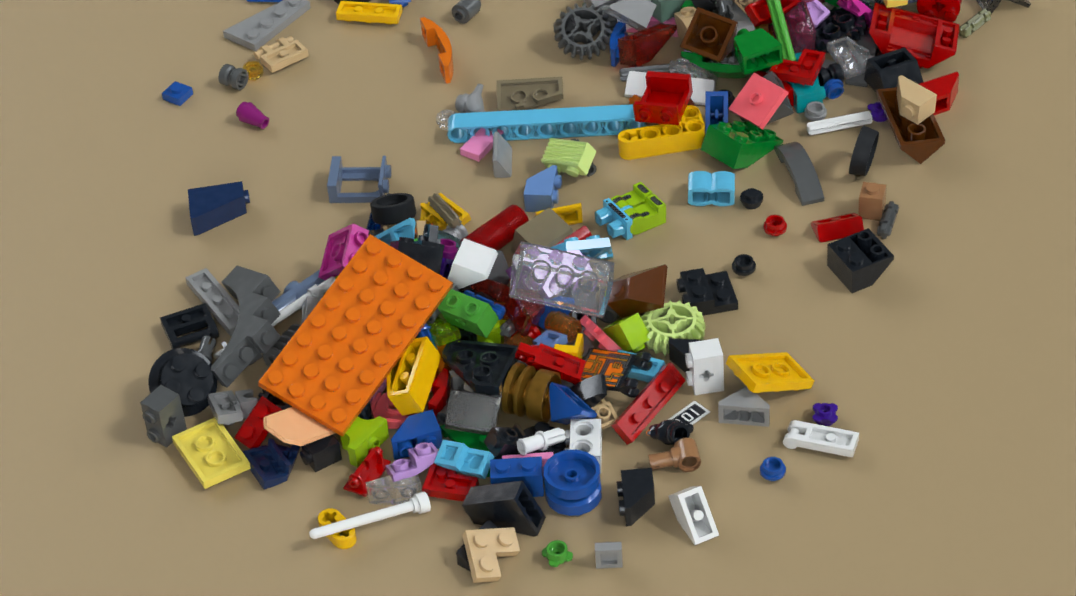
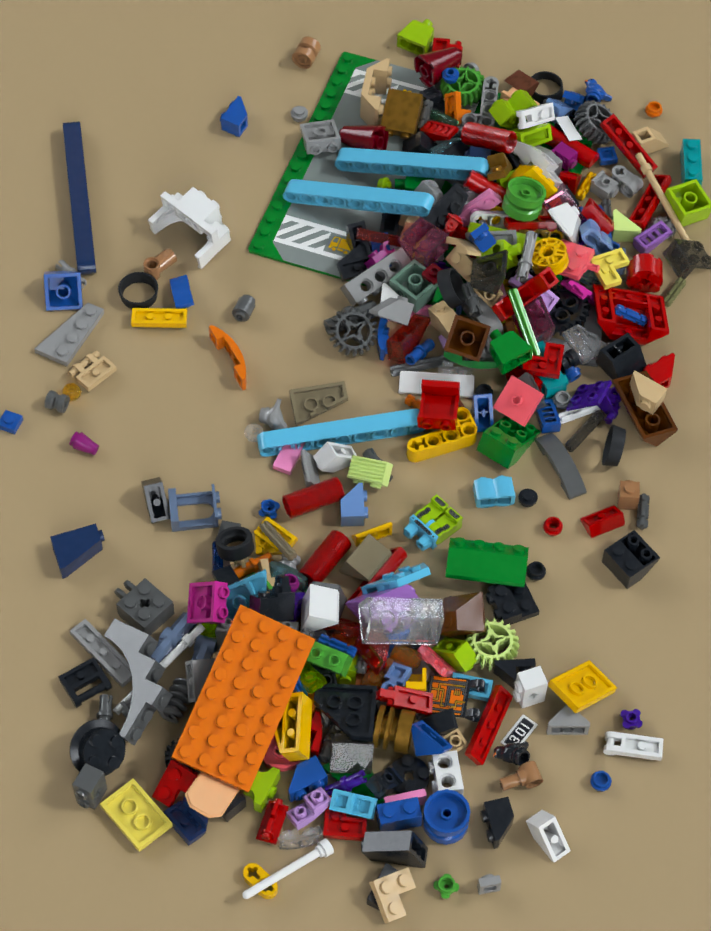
camera: 15 degrees left, 15 degrees up
(231, 408) = (144, 768): light grey plate -> none
(278, 259) = (144, 606): none -> dark grey hinge
(316, 168) = (155, 499): none -> black slope
(445, 186) = (269, 504): none -> blue plate
(470, 436) = (347, 783): none -> dark purple pin
(496, 177) = (310, 499): none -> red piece
(528, 143) = (334, 457): none -> white slope
(540, 441) = (413, 779): white axle -> none
(657, 56) = (420, 351): none -> blue pin
(684, 246) = (487, 562): none -> green slope
(795, 128) = (548, 427): none -> blue slope
(834, 142) = (584, 431): none -> clear smoke axle
(857, 106) = (595, 395): none -> dark purple plate
(913, 34) = (630, 315): none -> blue axle

